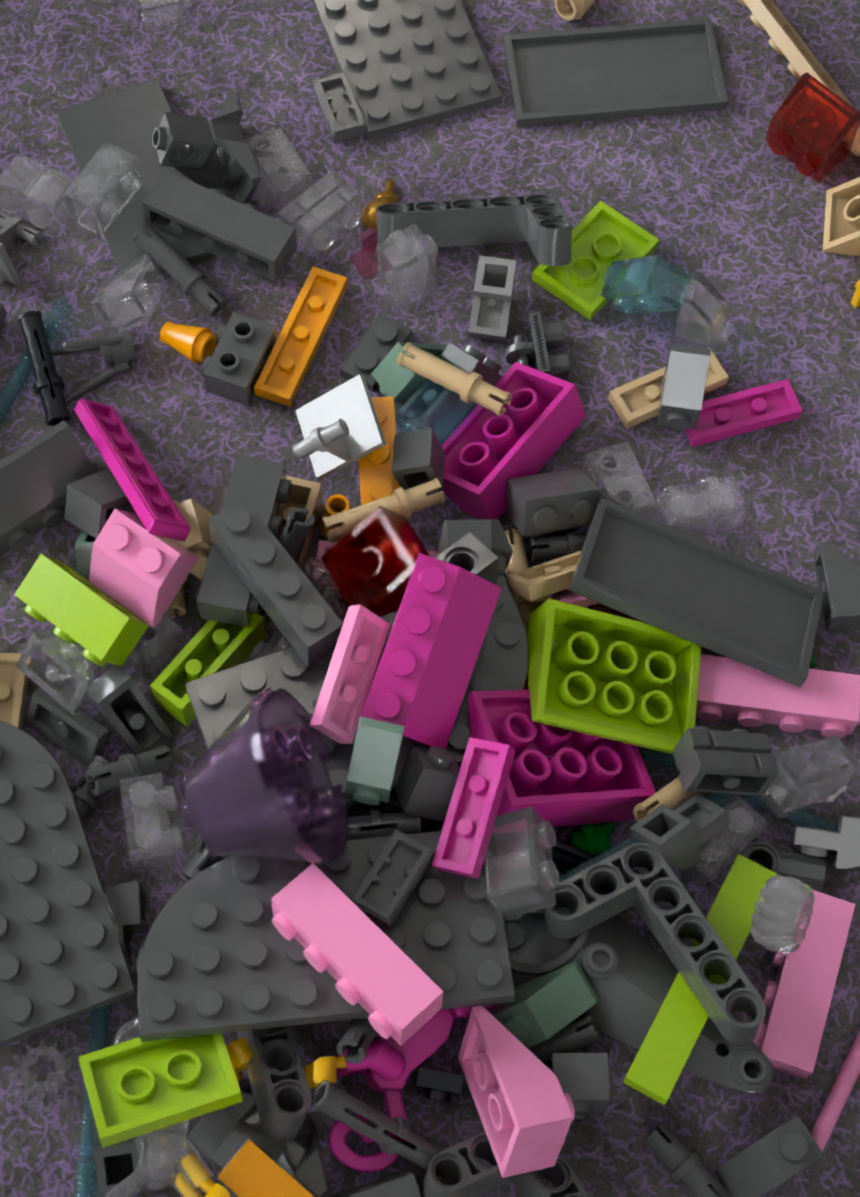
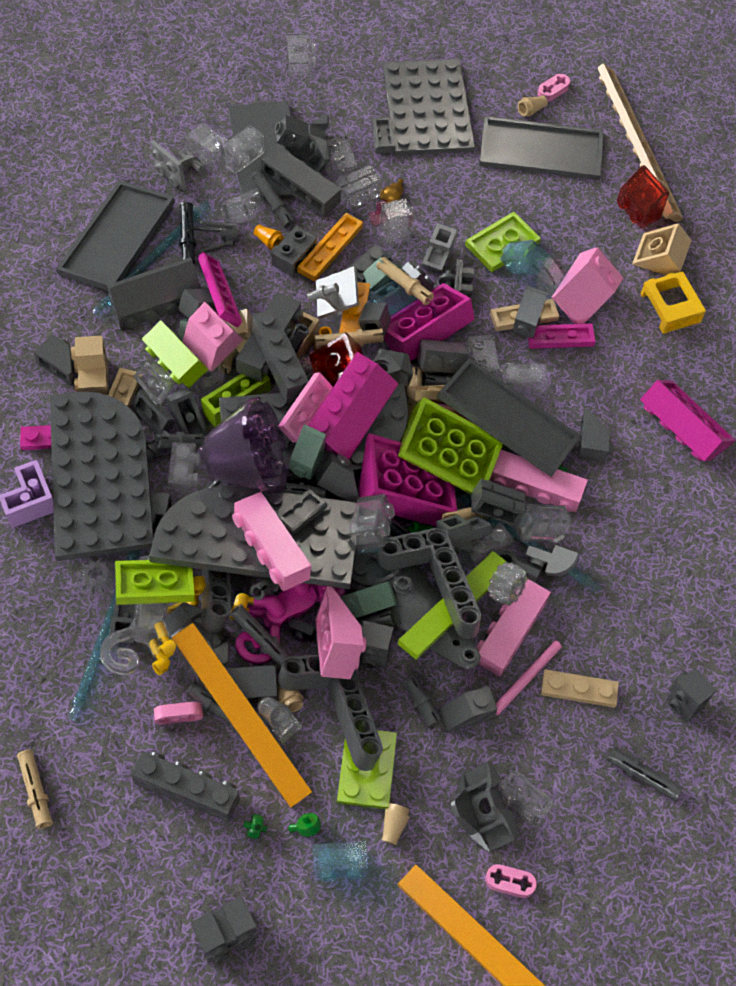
camera: 10 degrees right, 5 degrees down
(473, 808) = (353, 487): dark pink plate -> none
(486, 220) = (446, 208): dark grey beam -> none
(763, 312) = (587, 285): none -> bright pink slope

